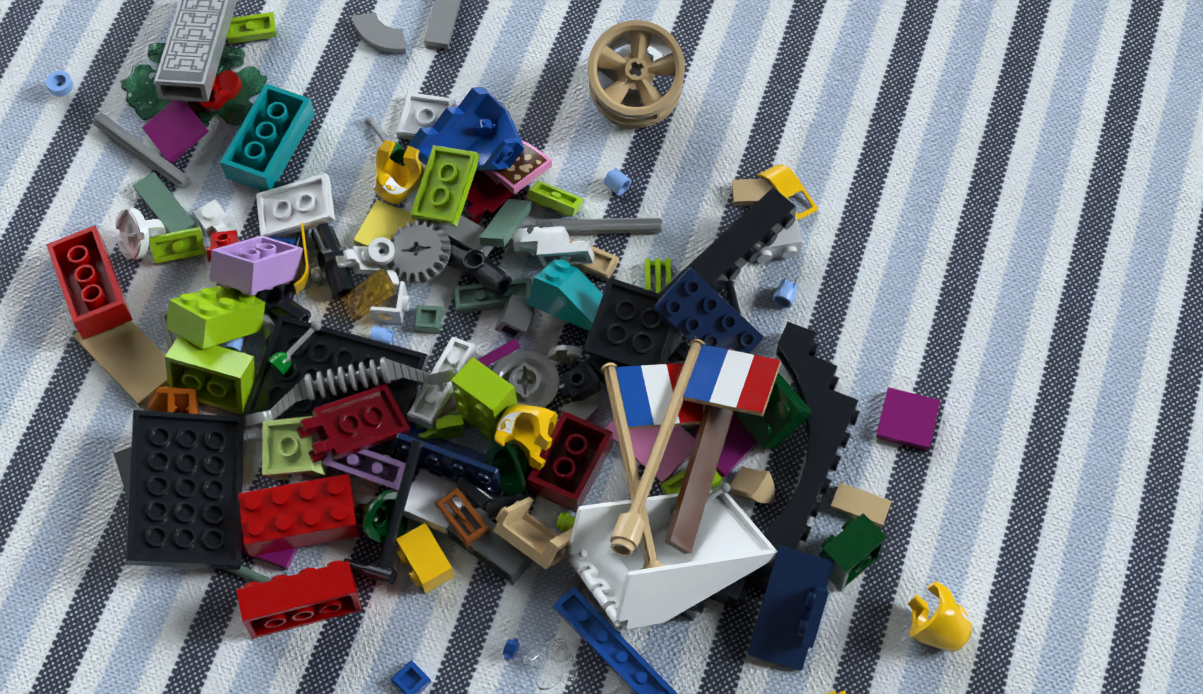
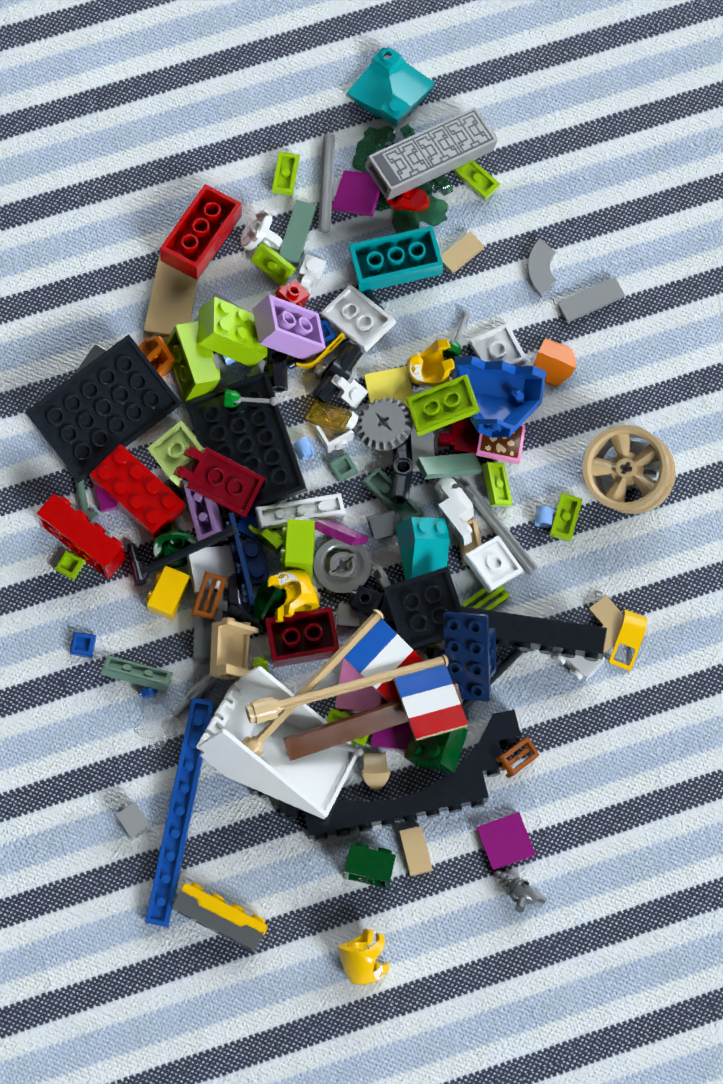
camera: 50 degrees right, 10 degrees up
(59, 83) = (334, 90): light blue tile -> none
(99, 40) = (390, 87): none -> teal slope
(100, 177) = (285, 174): none -> lime plate
(307, 386) = (274, 471): light grey piece -> none
(309, 83) = (461, 252): none -> tan tile
(316, 637) = (69, 565): none -> lime tile
(381, 251) = (360, 396): white tile -> none
(478, 74) = (556, 361): none -> orange slope
(483, 645) = (137, 673): none -> sand green tile
(546, 598) = (196, 692): none -> light grey axle
(629, 251) = (493, 564): none -> white tile
(632, 164) = (566, 517): none -> lime plate
(785, 294) = (541, 693): light blue hose -> none
(791, 608) = (299, 852): dark blue bracket -> none
(830, 348) = (506, 765): none -> dark orange tile
(966, 437) = (520, 891): none -> dark grey piece

